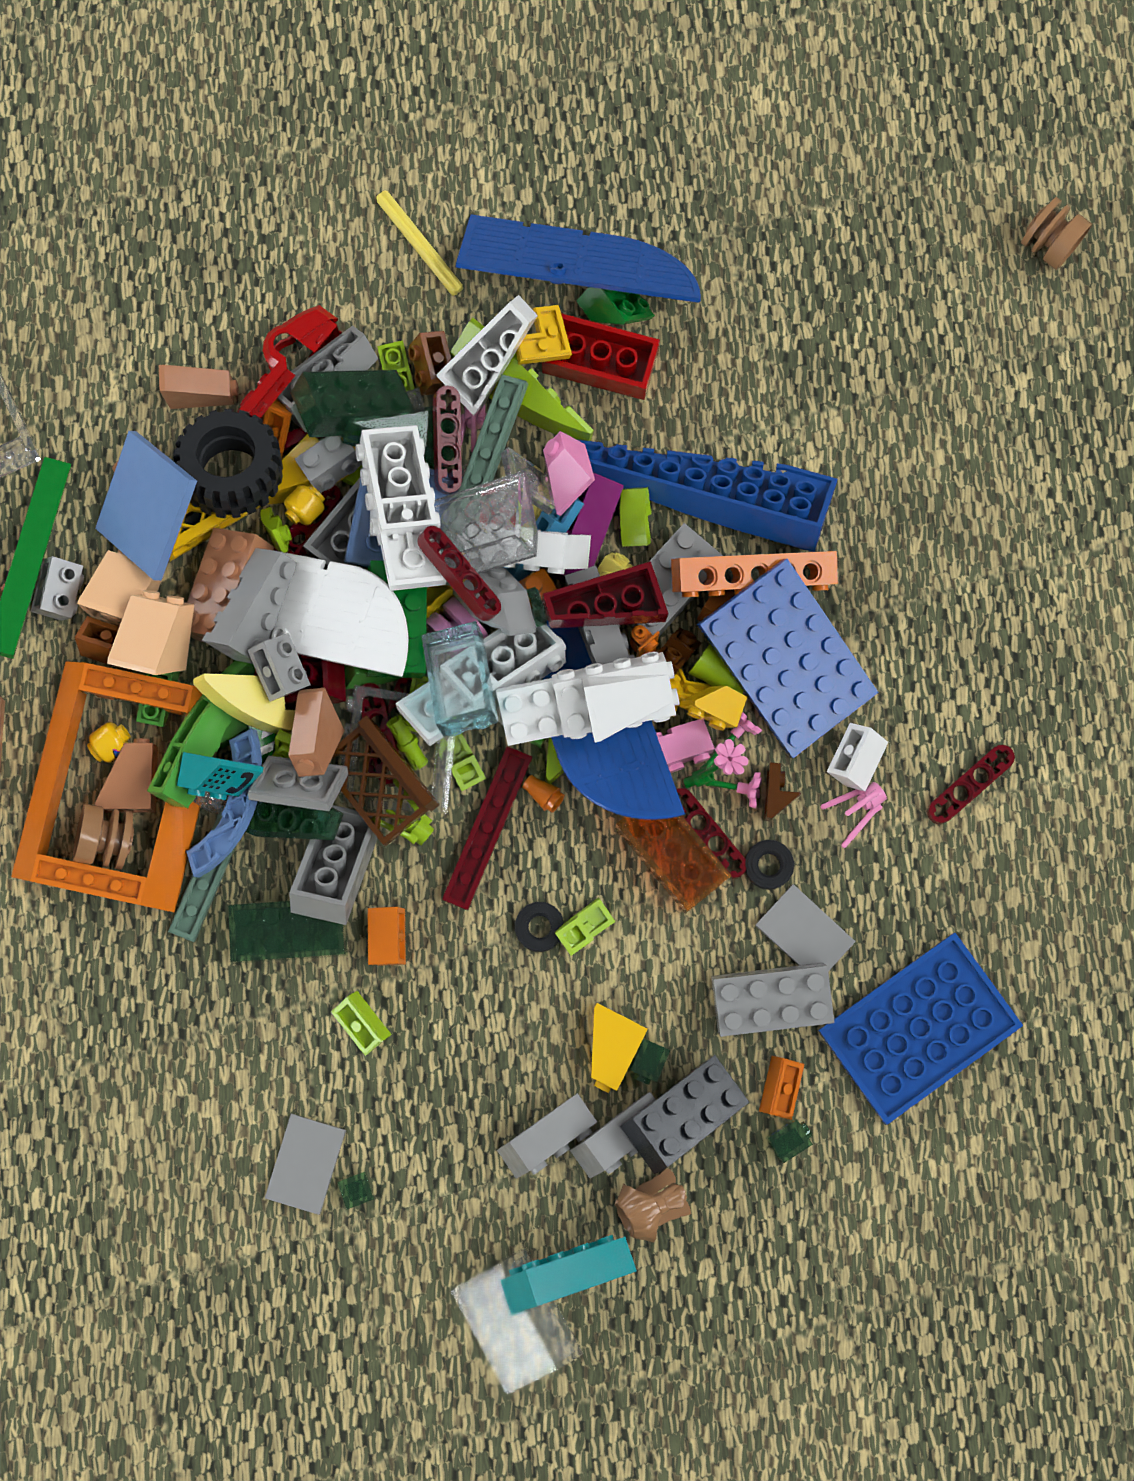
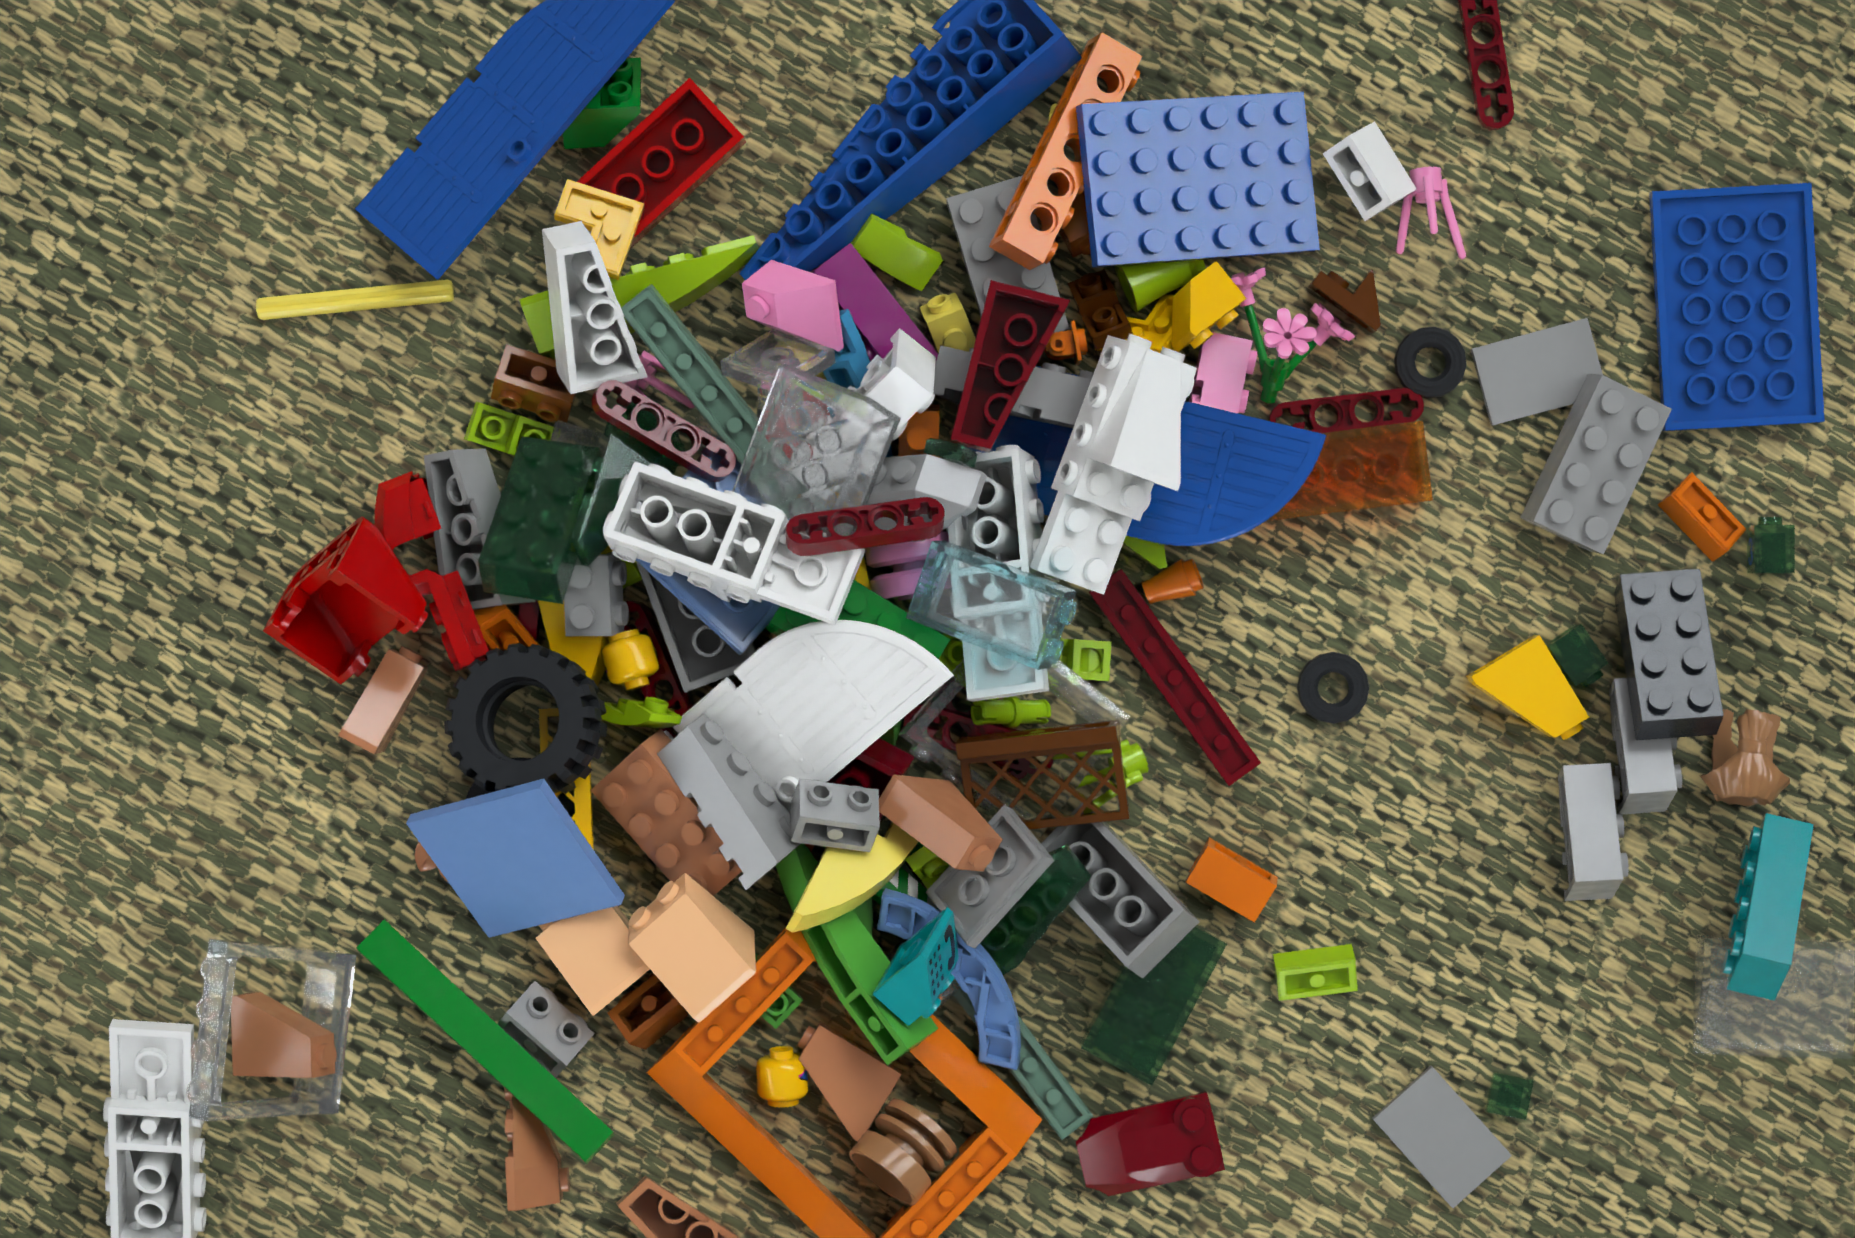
camera: 55 degrees left, 10 degrees up
(195, 987) = (1150, 1145): none -> dark red slope
(238, 329) = (346, 603): none -> red windscreen
(584, 926) = (1366, 635): lime slope -> none

